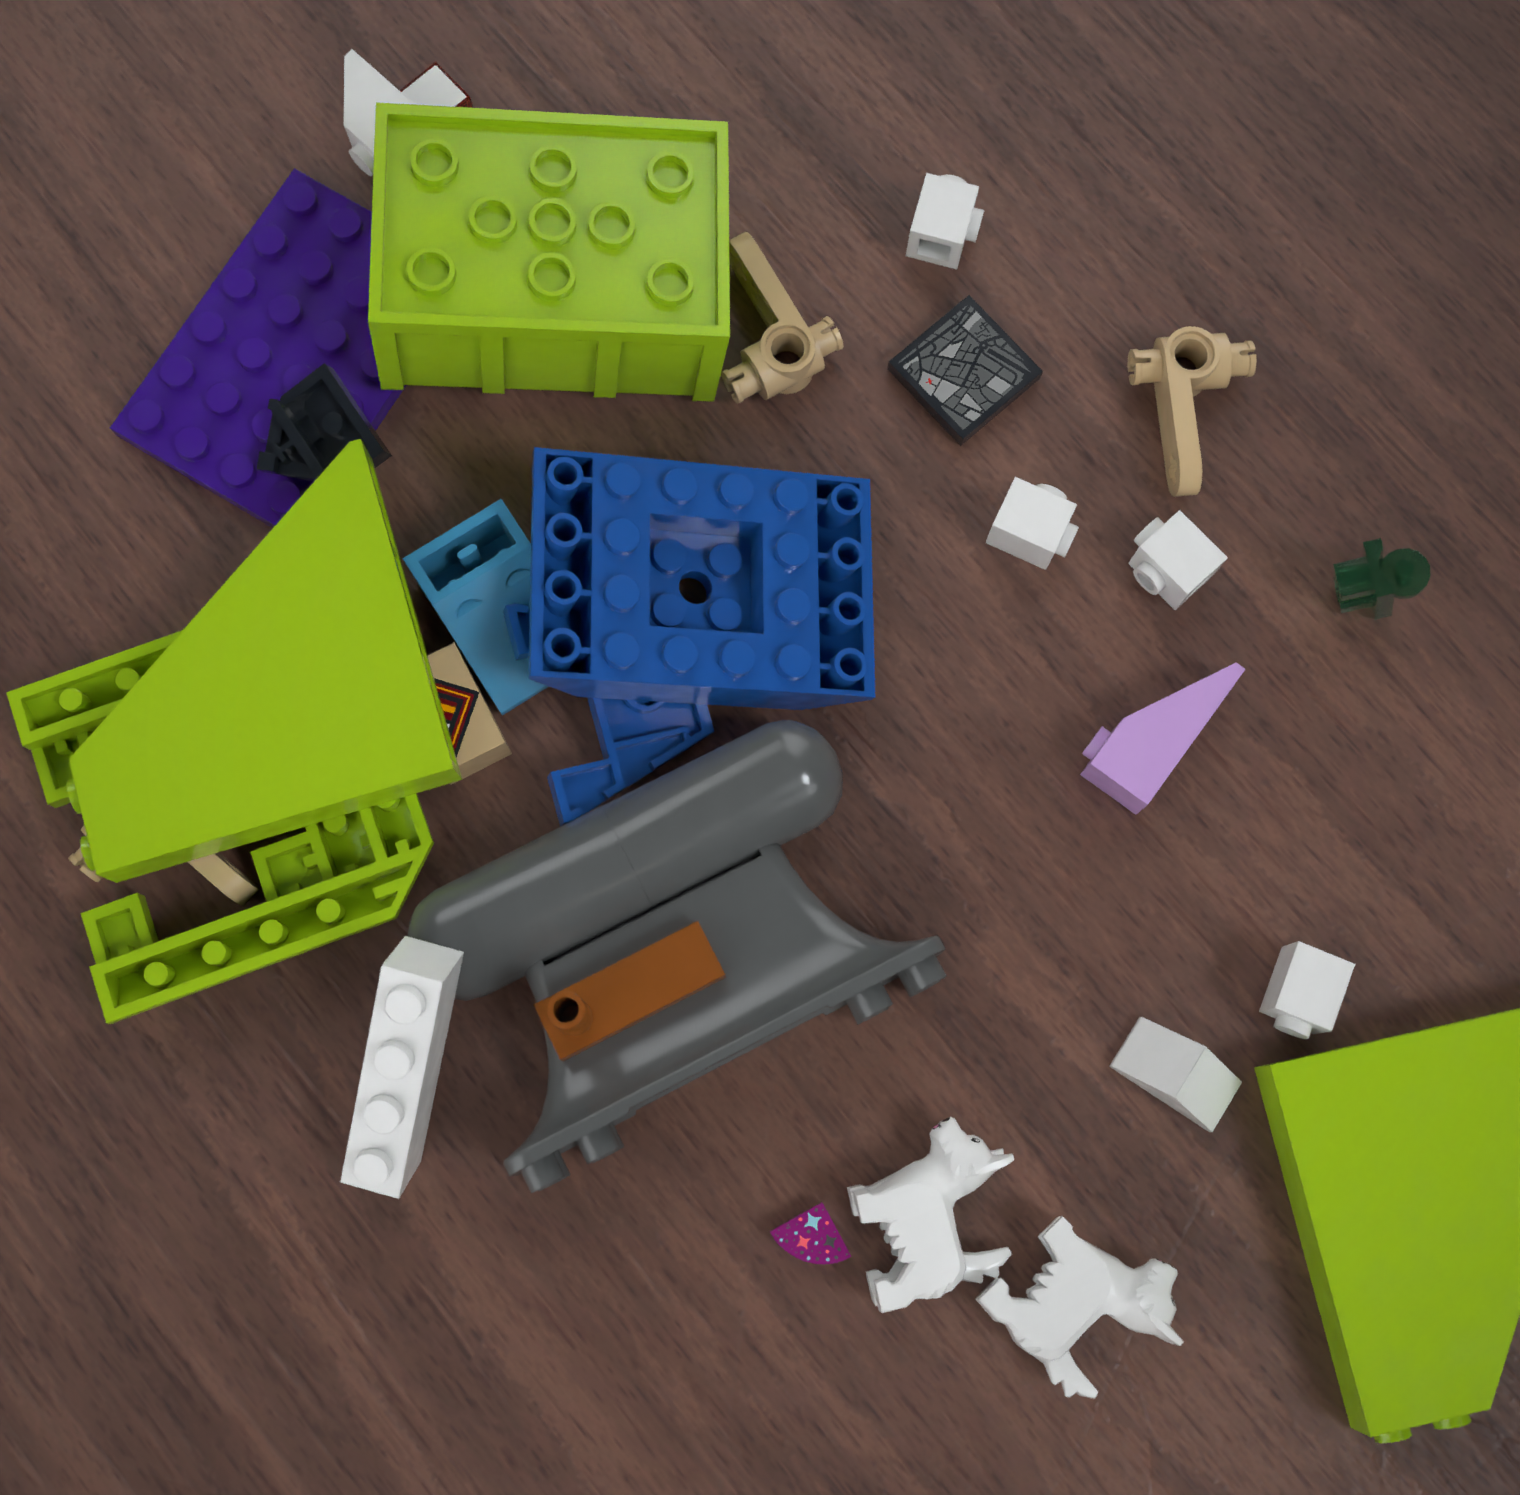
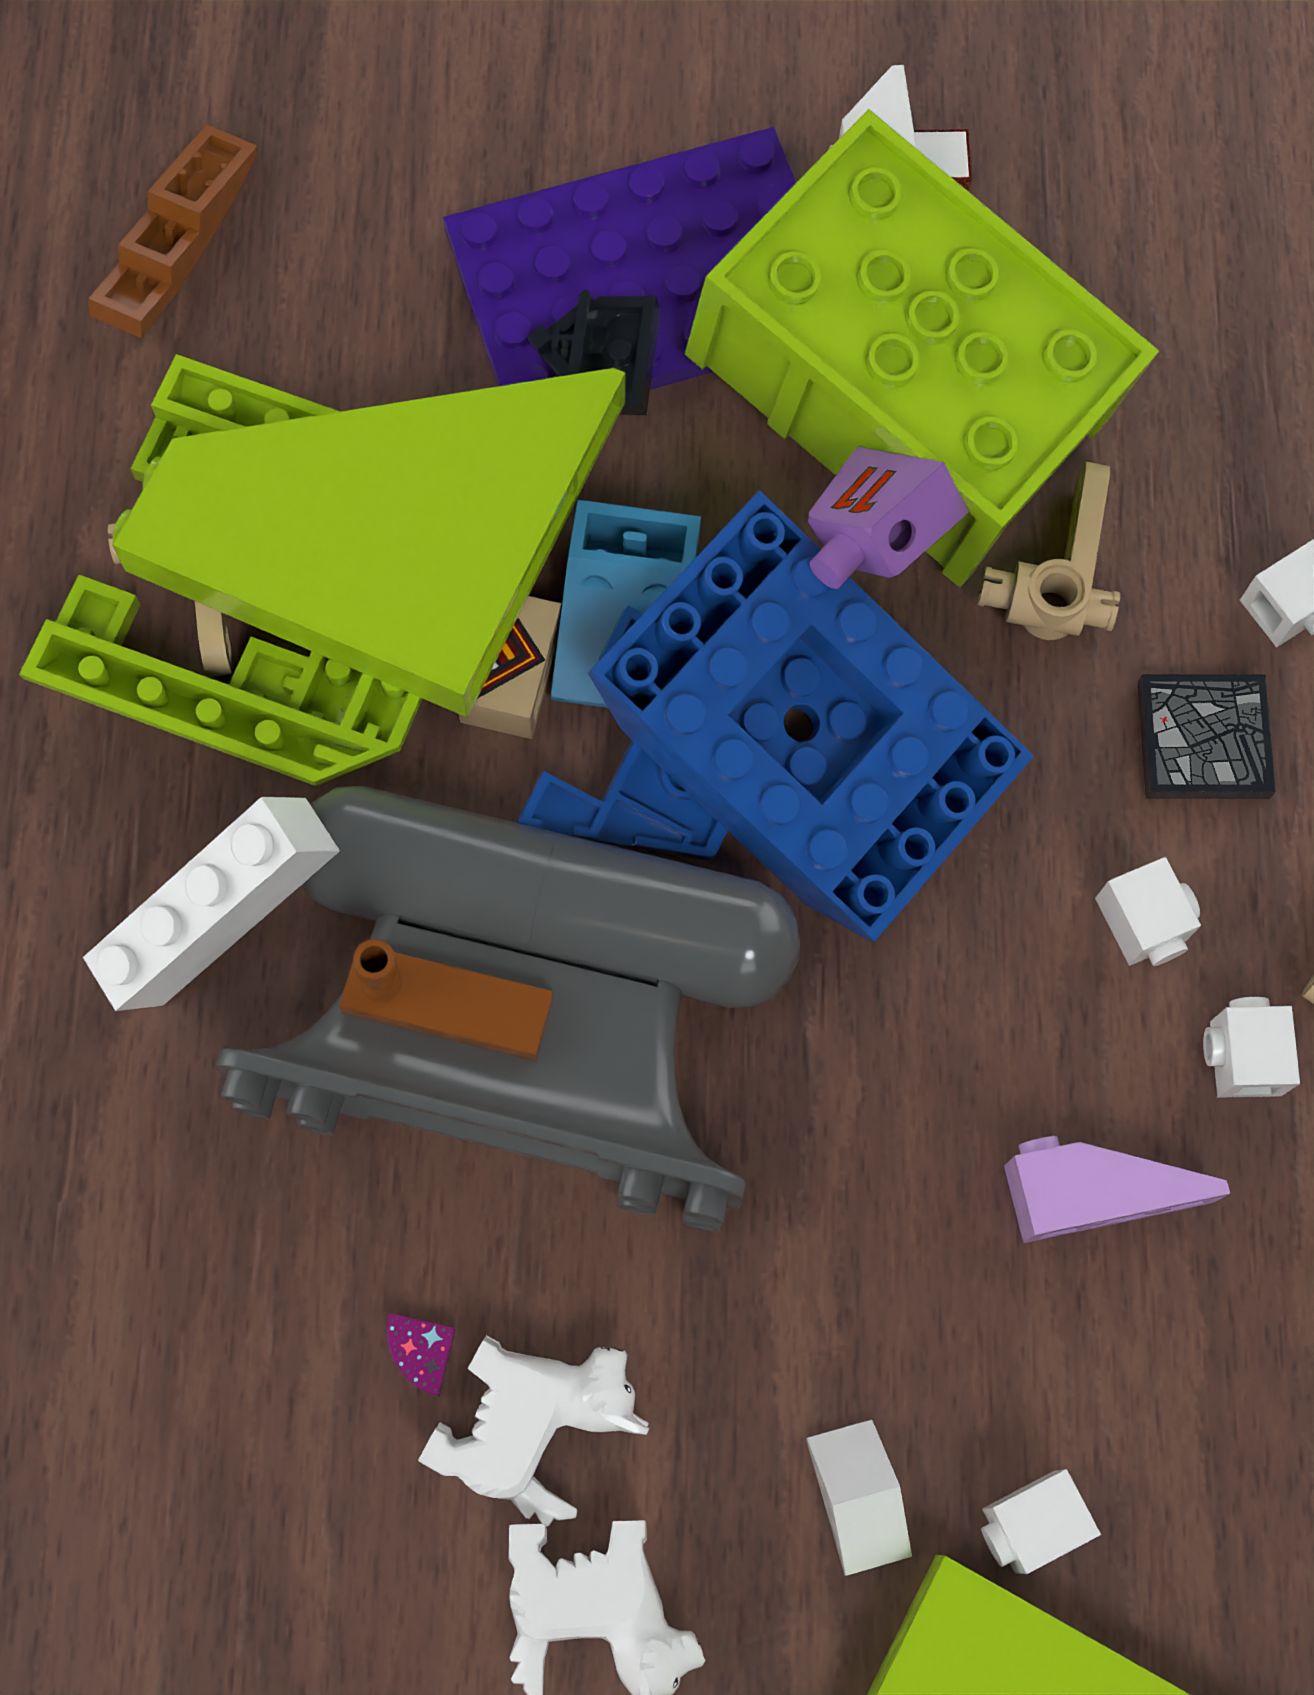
camera: 40 degrees right, 5 degrees down
(635, 395) = (881, 514): none -> medium lavender torso

